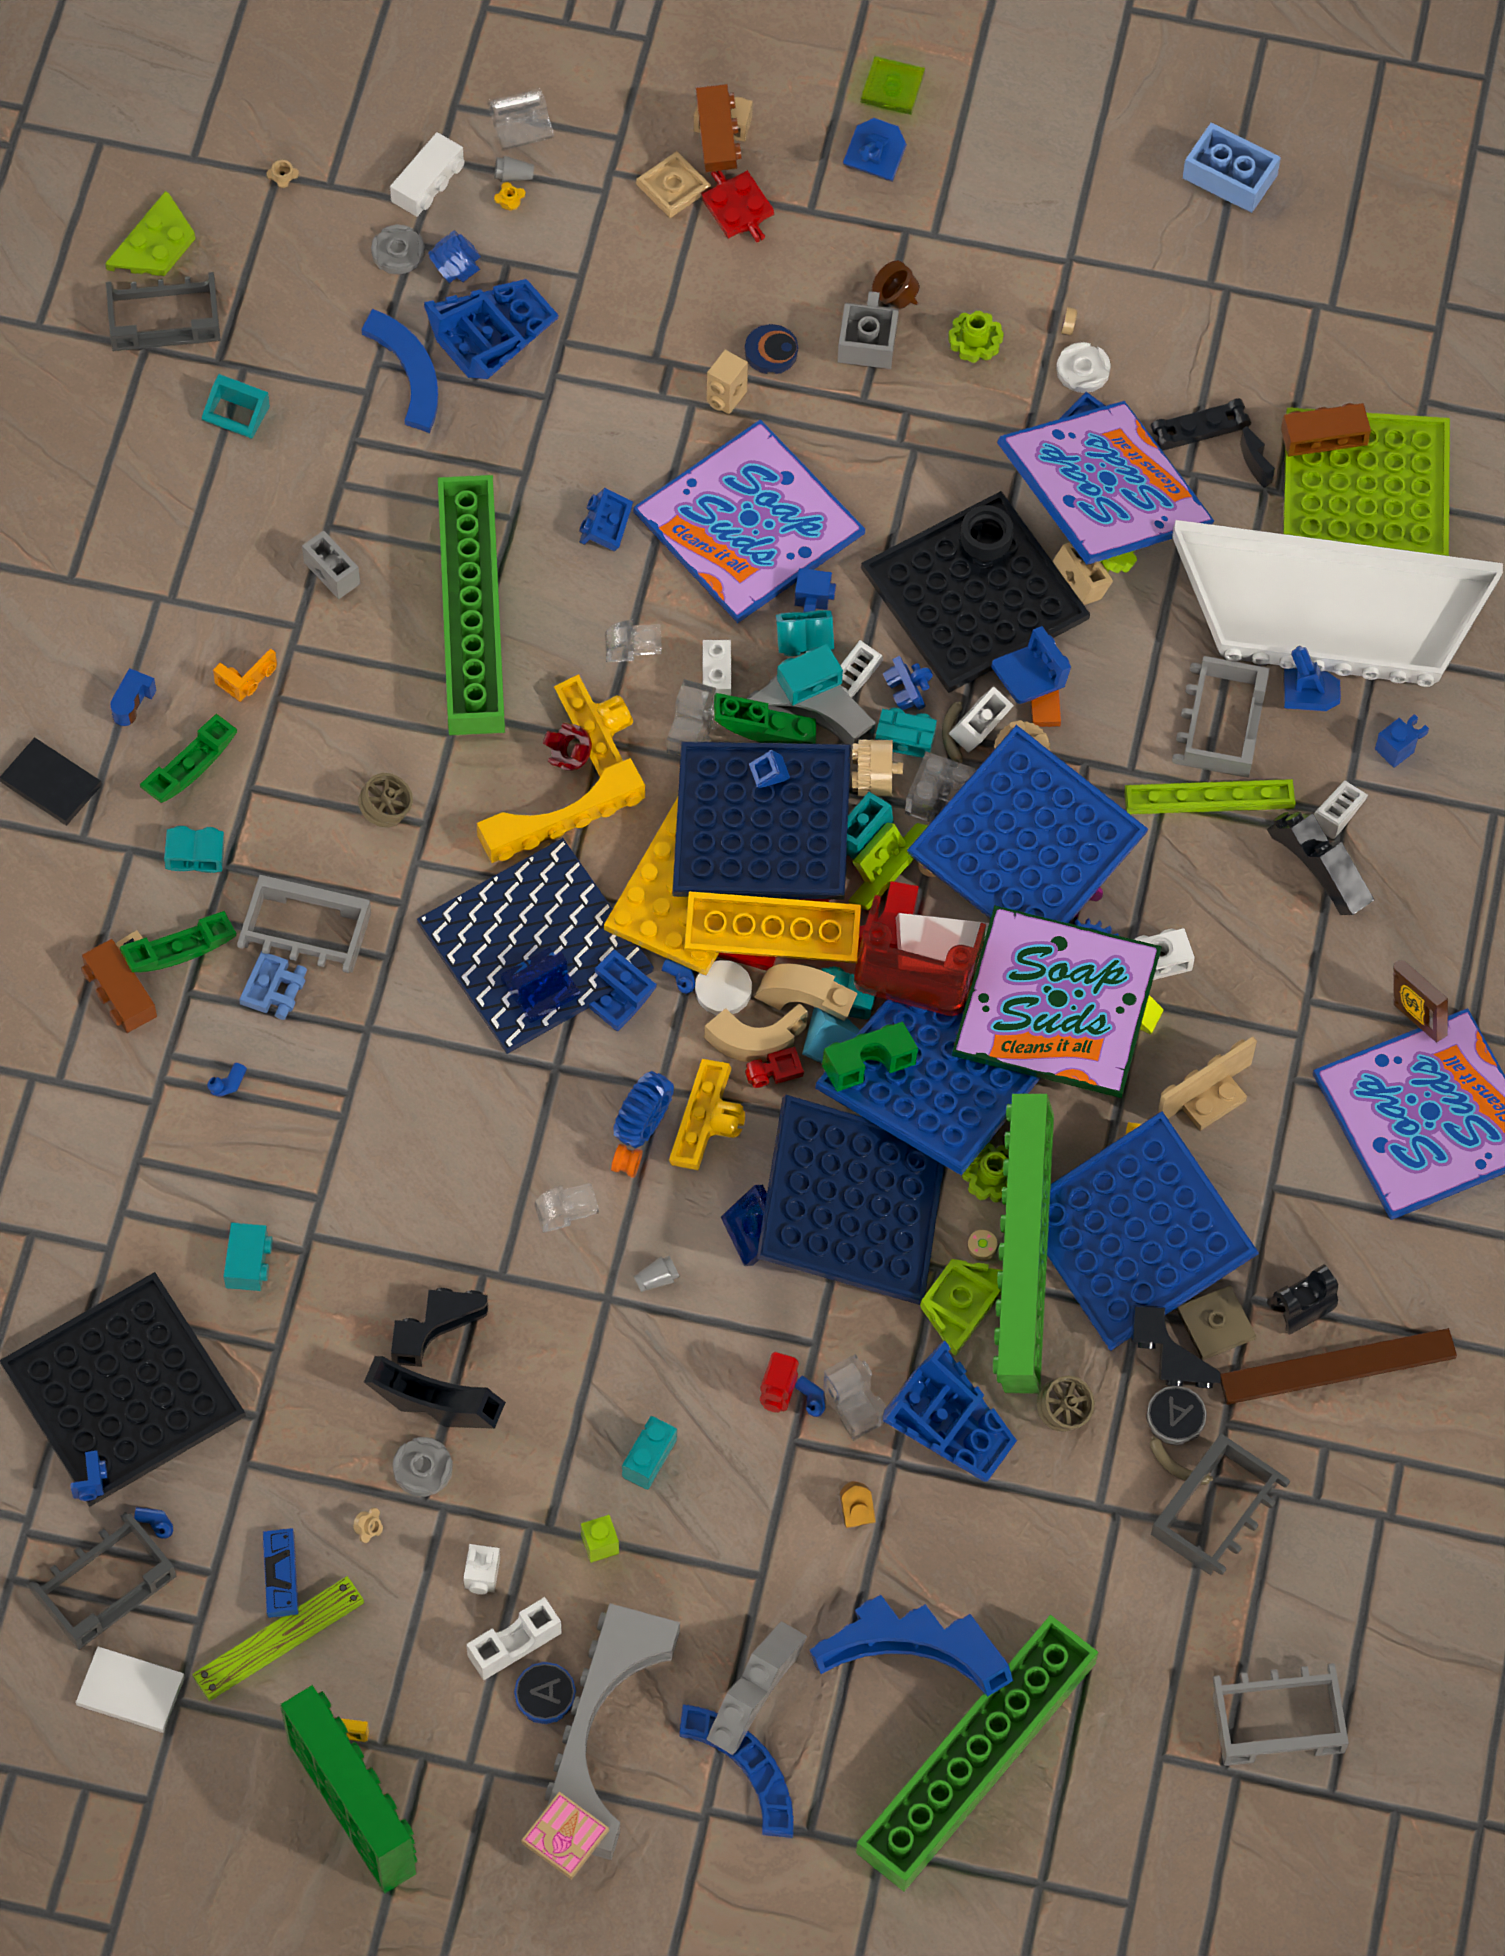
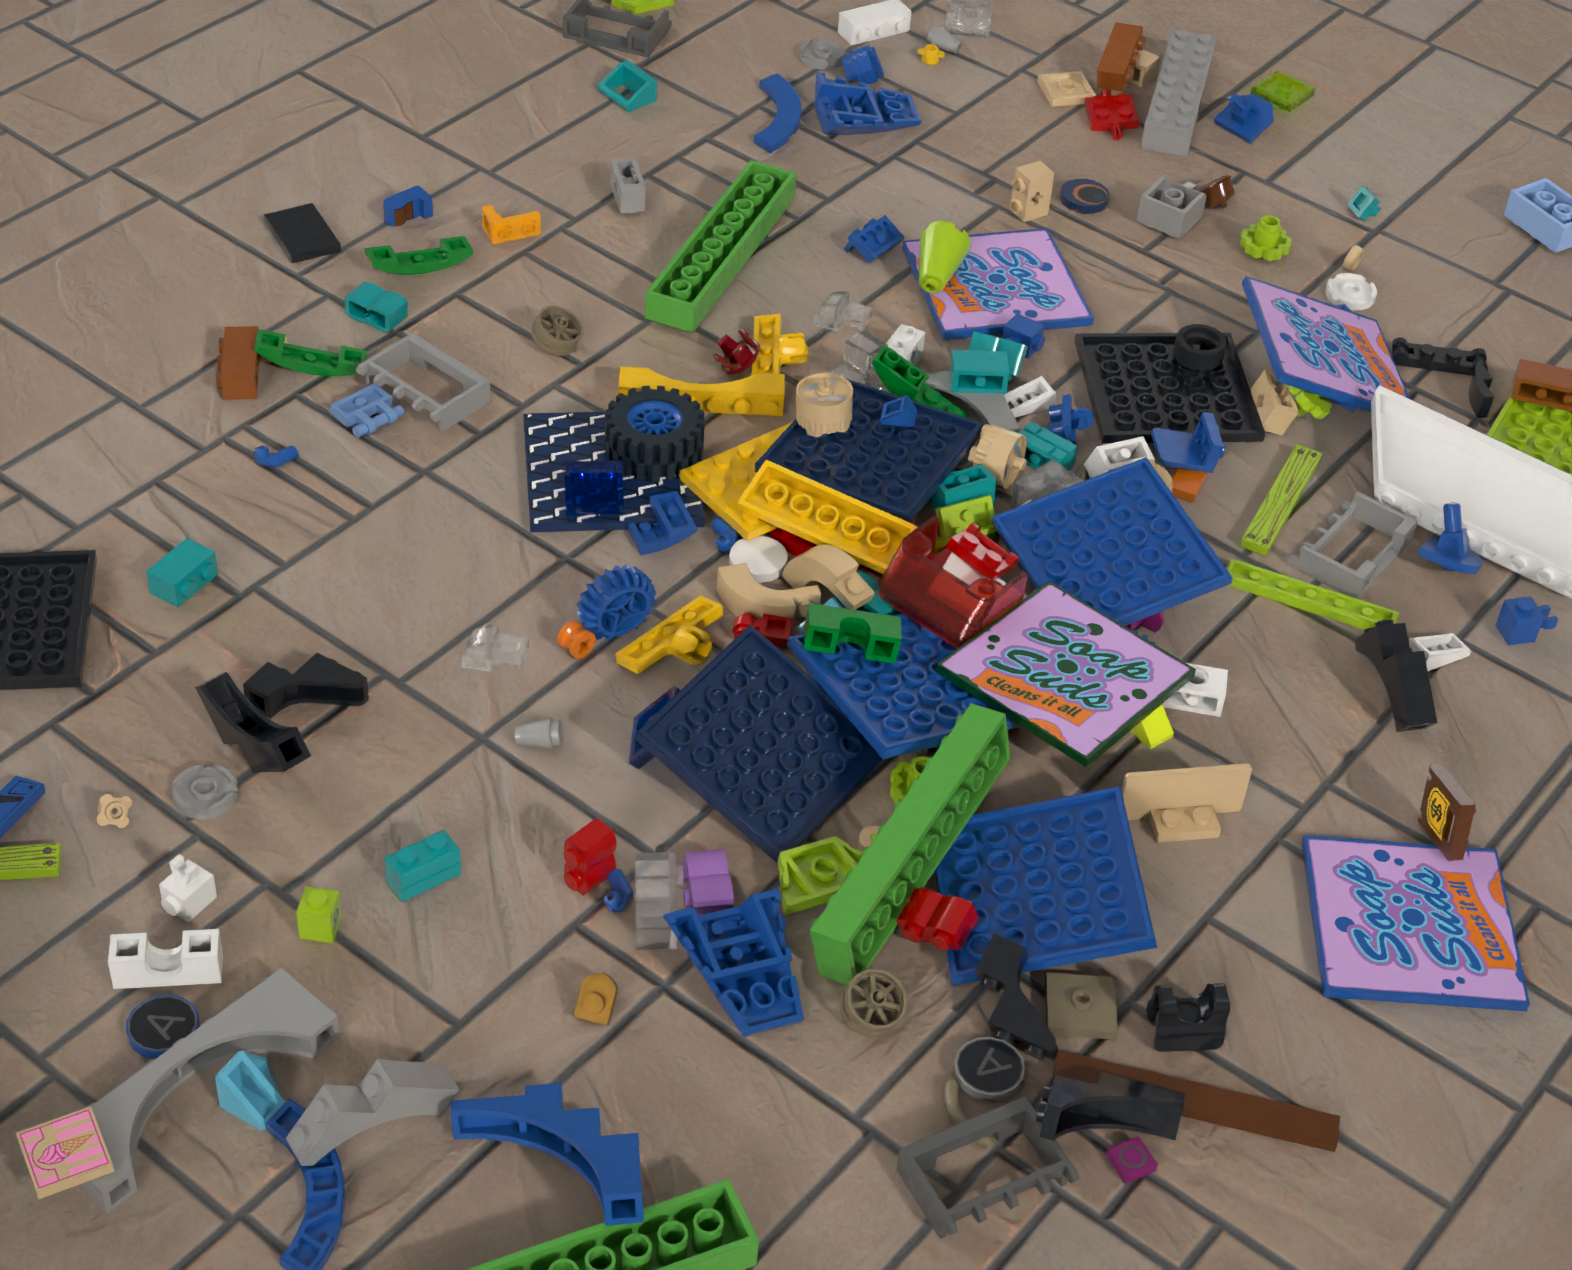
camera: 25 degrees right, 20 degrees down
(585, 894) = (654, 432): none -> black wheel
(653, 1714) = (249, 1089): none -> medium azure slope
(691, 528) = (941, 254): none -> lime cone
(703, 798) = (824, 404): none -> tan piece
(793, 143) = (1178, 93): none -> light grey brick
(880, 1353) = (707, 881): none -> medium lavender brick
(919, 905) = (982, 552): none -> red plate
(1045, 232) = (1364, 203): none -> teal tile
(1075, 1303) = (937, 919): none -> red brick
(1136, 686) = (1281, 500): none -> lime tile
(1281, 1407) = (1109, 1105): none -> black arch
(1315, 1441) = (1131, 1160): none -> magenta tile

